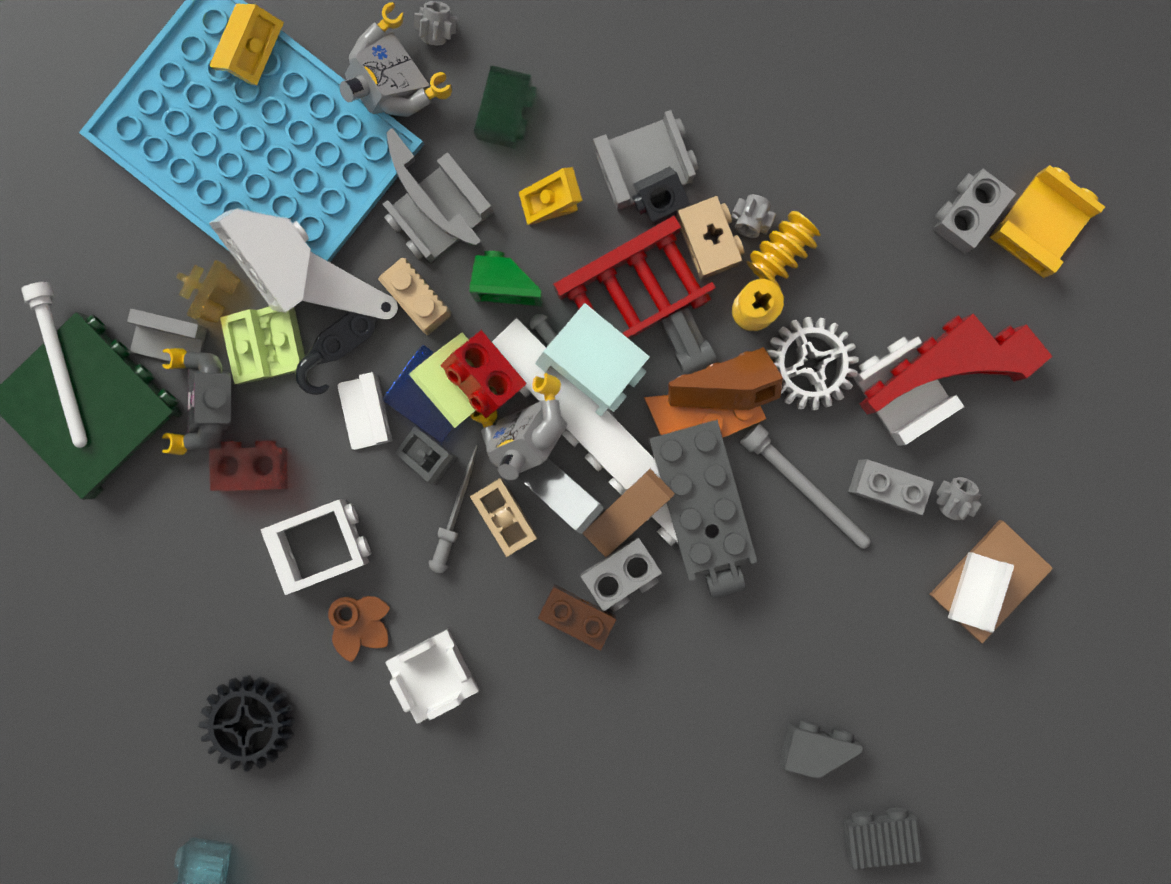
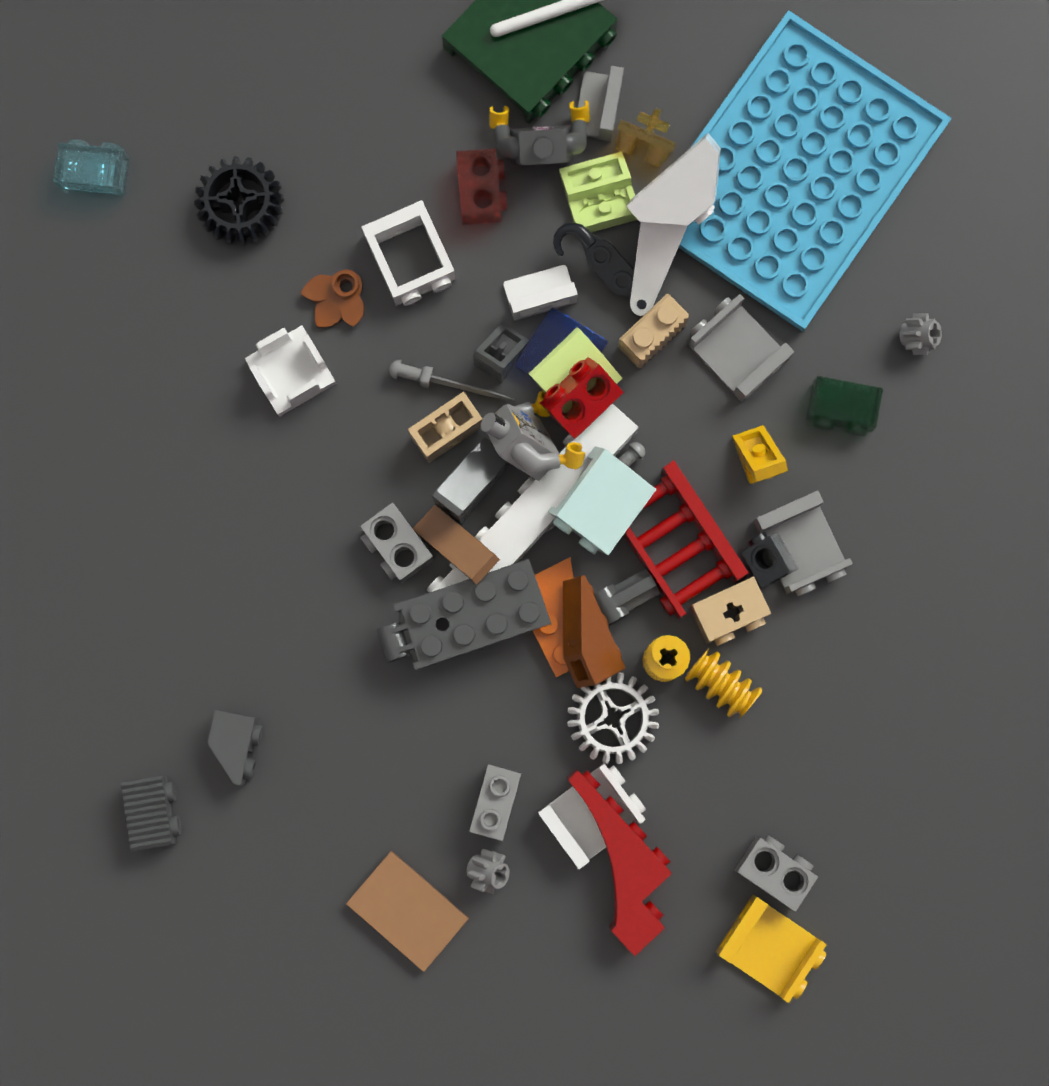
camera: 90 degrees right, 5 degrees down
(247, 42) = (885, 158): yellow panel -> none
(386, 75) = (865, 289): light grey torso -> none
(402, 158) = (783, 307): light grey slope -> none
(502, 281) = (674, 411): green slope -> none
(577, 617) = (353, 502): reddish brown brick -> none
(753, 216) = (754, 652): light grey gear -> none
(759, 442) = (532, 671): light grey piece -> none
(981, 592) = (397, 895): white panel -> none

